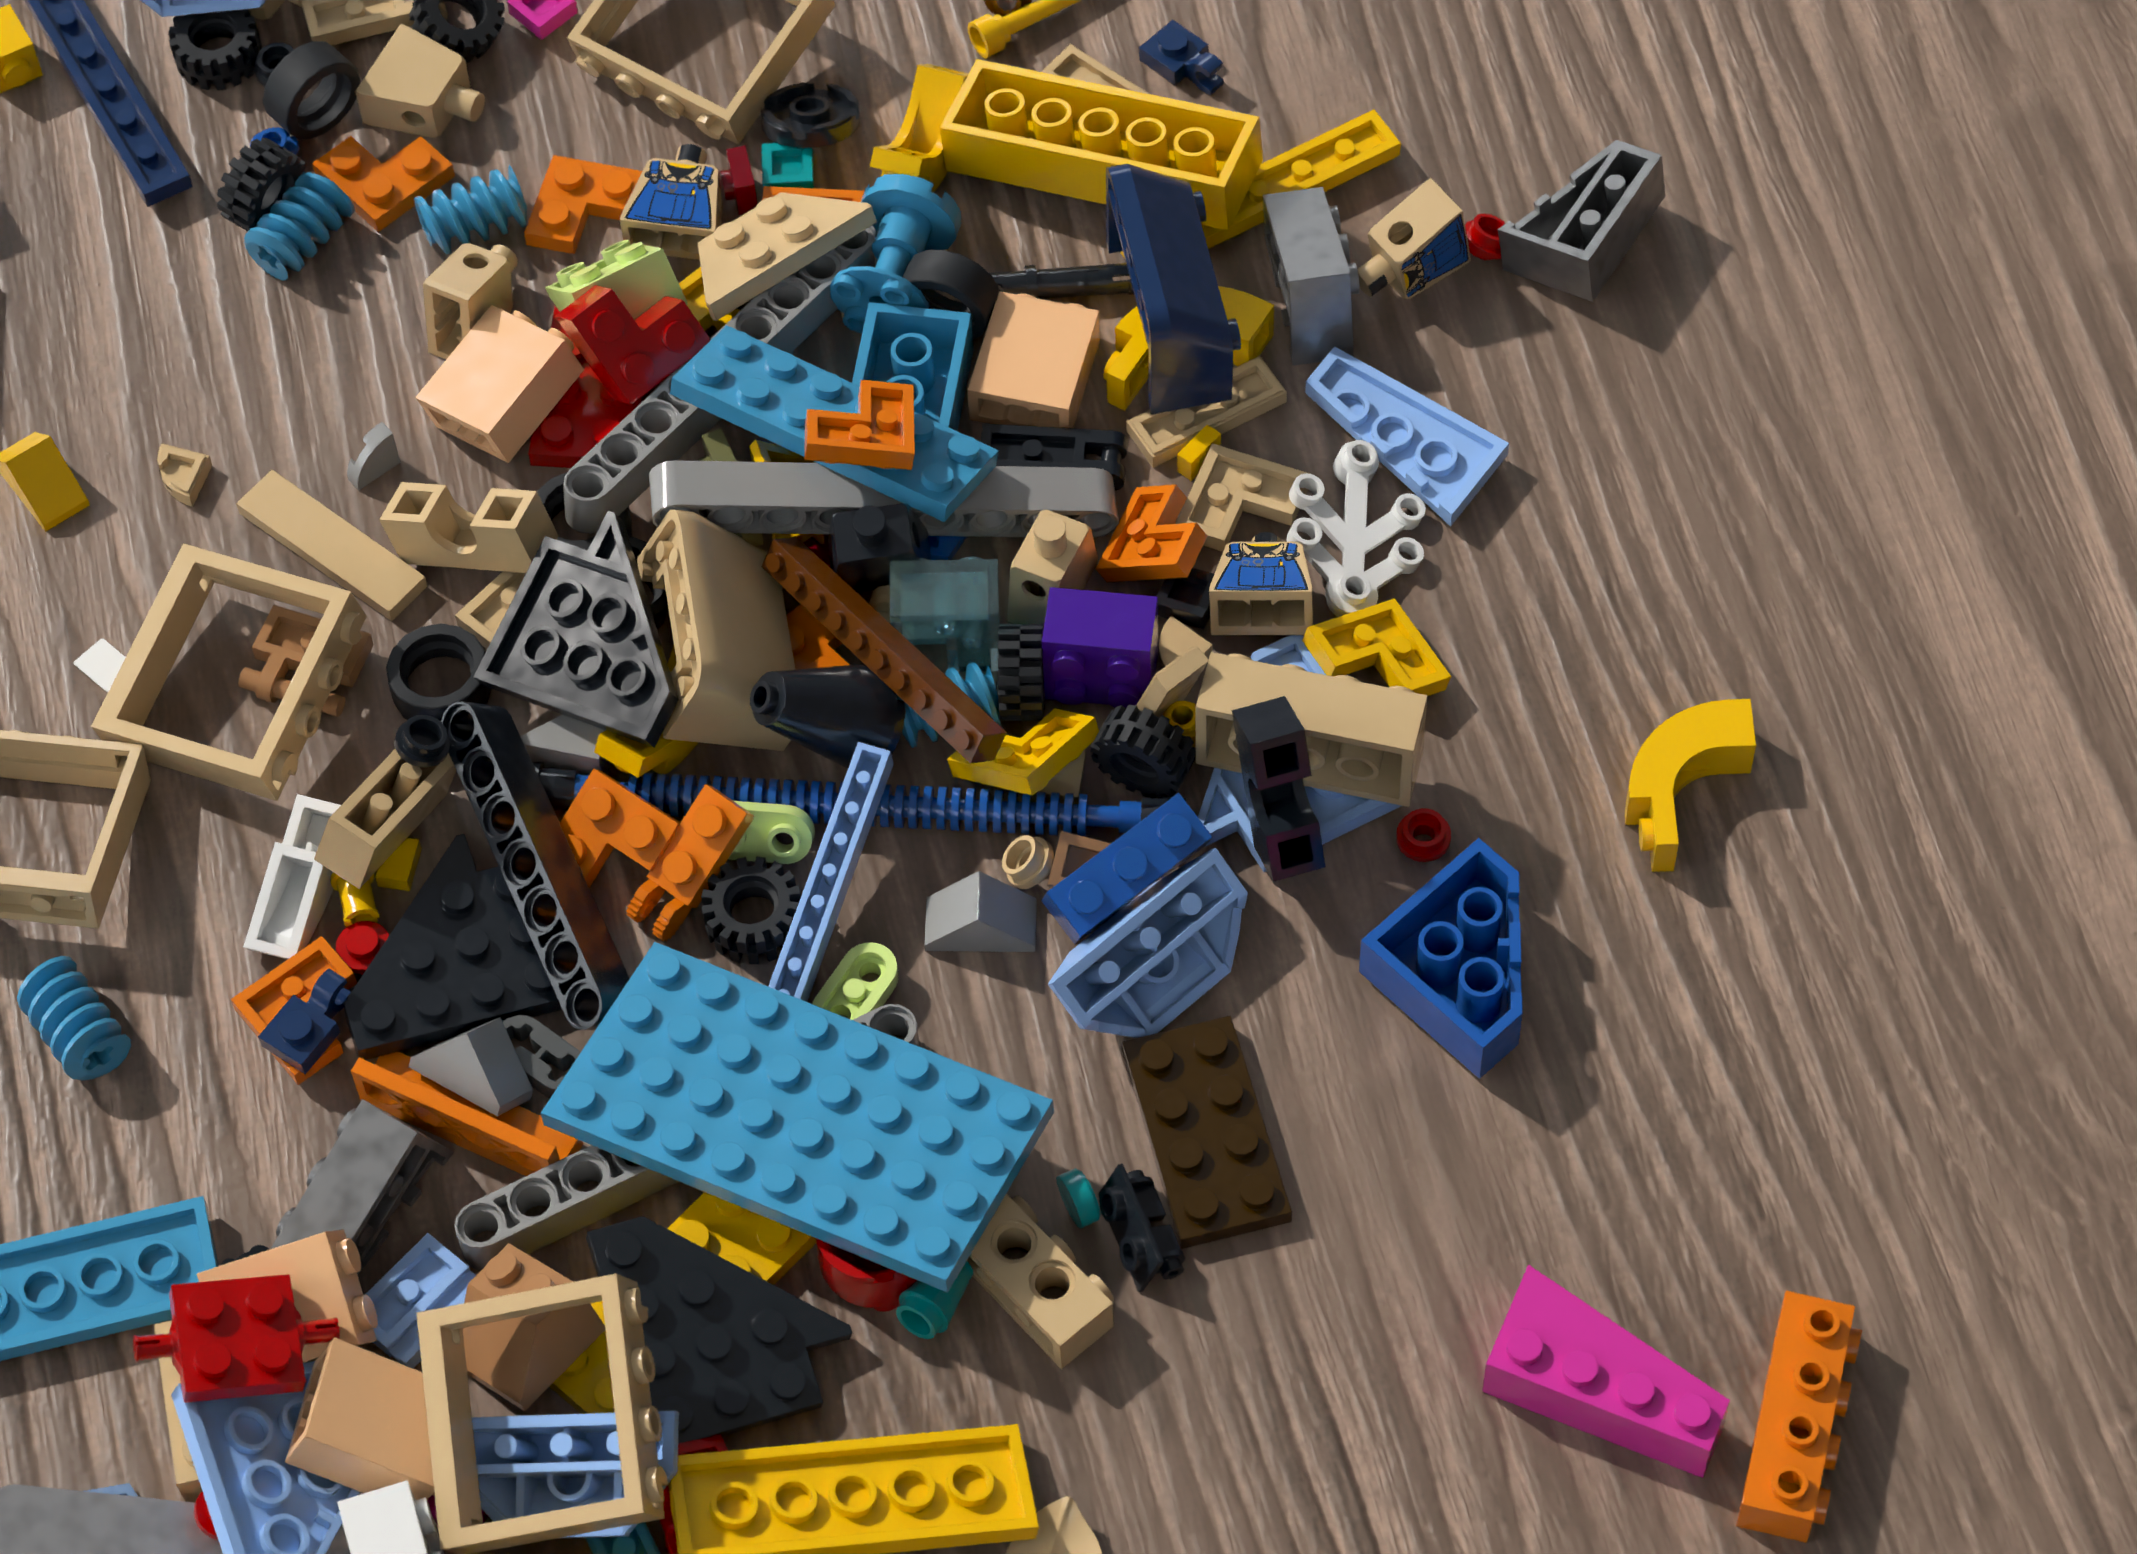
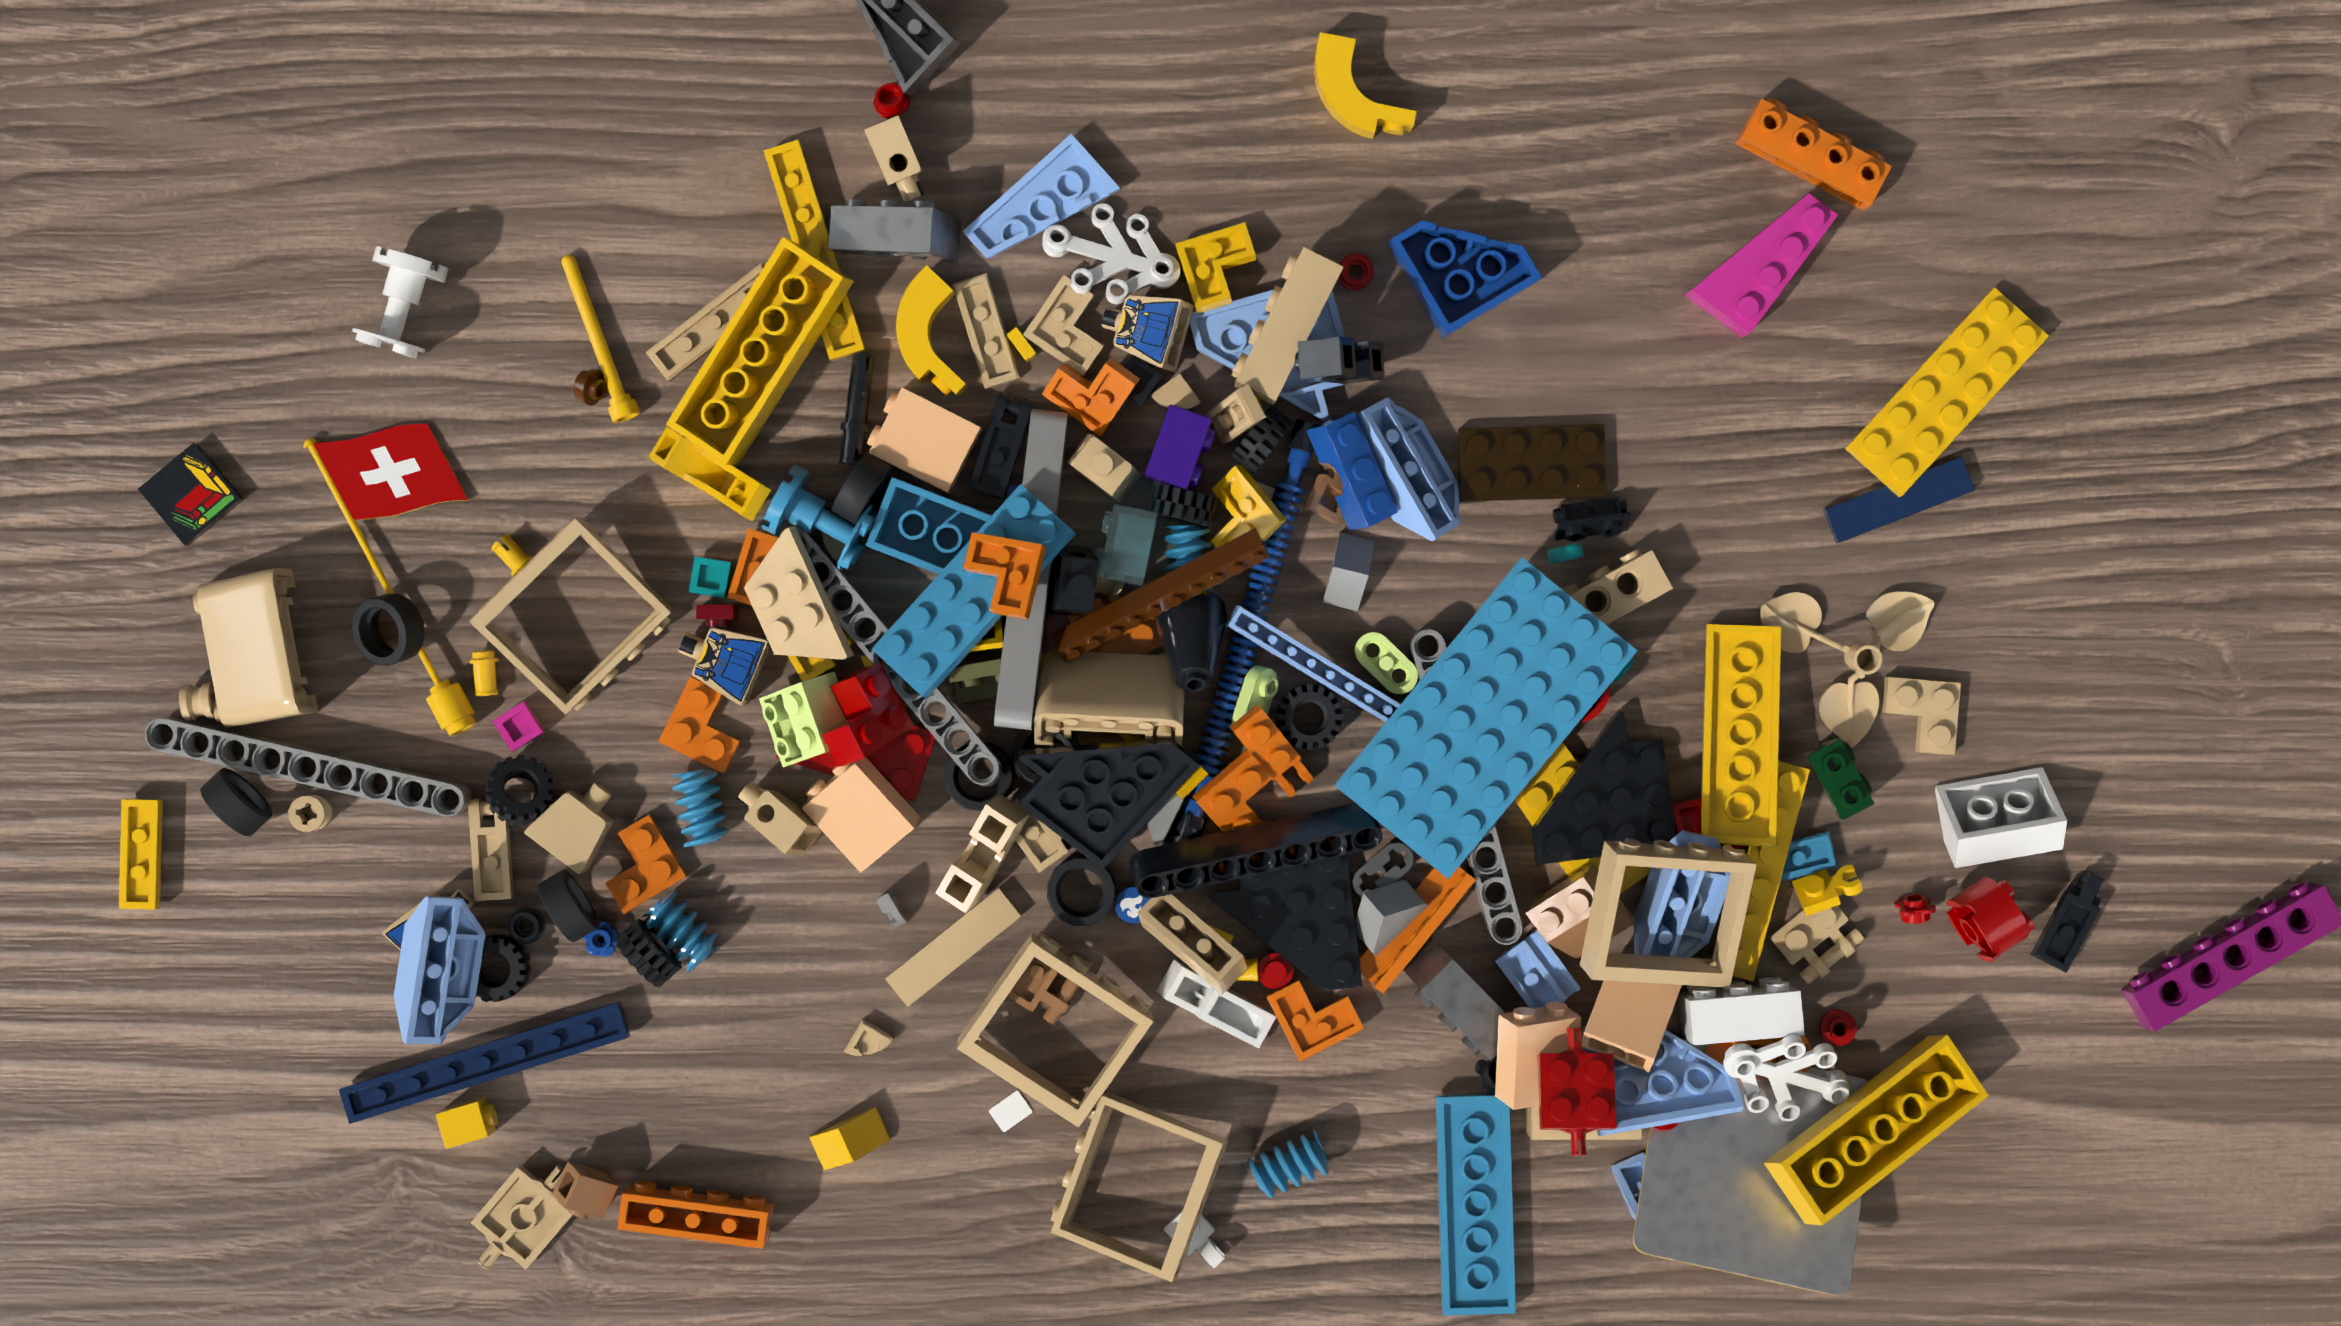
camera: 80 degrees left, 30 degrees up
(305, 1029) = (1336, 1017): dark blue plate -> none
(422, 741) = (1160, 912): black plate -> none
(810, 116) = (669, 552): black tile -> none
(1028, 861) = (1316, 539): tan plate -> none
(1174, 286) = (909, 332): dark blue windscreen -> none
(1181, 54) = (671, 277): dark blue plate -> none

